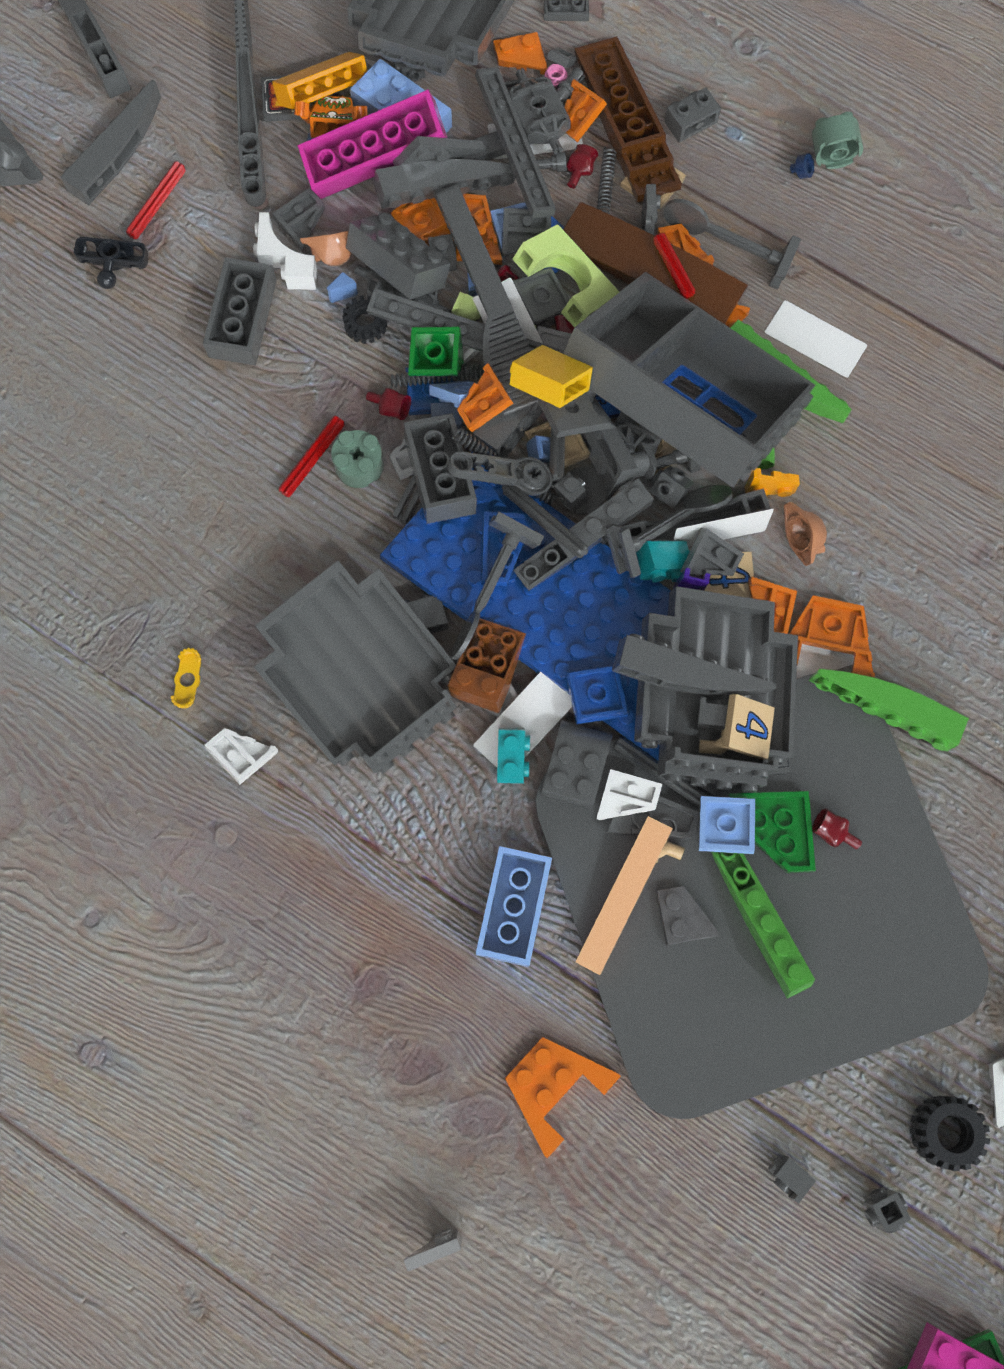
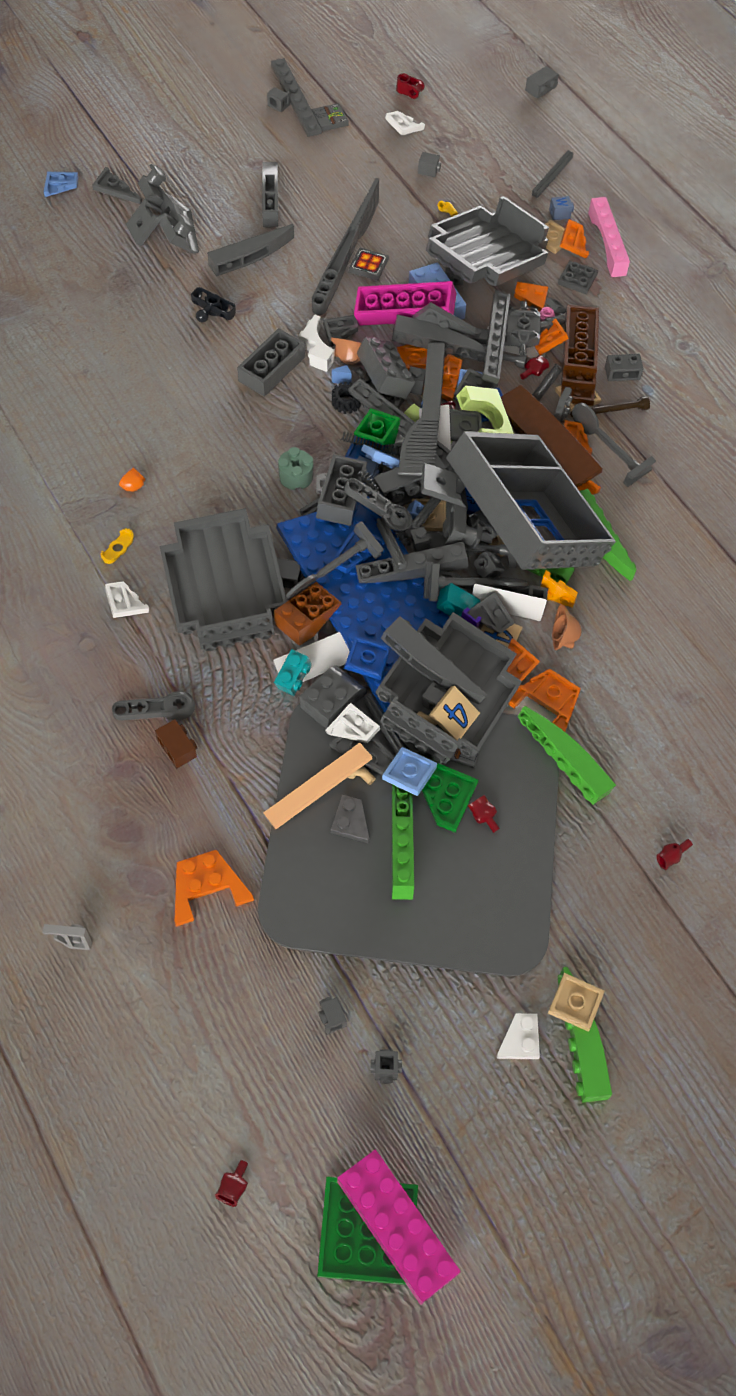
camera: 25 degrees right, 15 degrees down
(153, 575) = (132, 480): none -> orange piece
(155, 200) = (257, 287): red axle -> none
(311, 456) = (265, 459): red axle -> none
(320, 79) = (392, 259): light orange brick -> none
(329, 113) = (386, 277): orange torso -> none
(368, 879) = (157, 707): none -> dark grey beam
(391, 403) = (335, 447): dark red piece -> none
(419, 922) = (176, 743): none -> reddish brown brick
(484, 400) = (389, 460): orange wing -> none
(513, 906) = (242, 761): light blue brick -> none
(550, 376) = (436, 457): yellow brick -> none
(674, 265) = (559, 438): red axle -> none
(739, 159) = (642, 403): none -> dark brown piece
(803, 166) = (683, 423): dark blue tile -> none
(816, 338) = (638, 525): white sticker -> none
(837, 140) = (712, 415): sand green brick -> none
(972, 1133) = (467, 1023): black tyre -> none

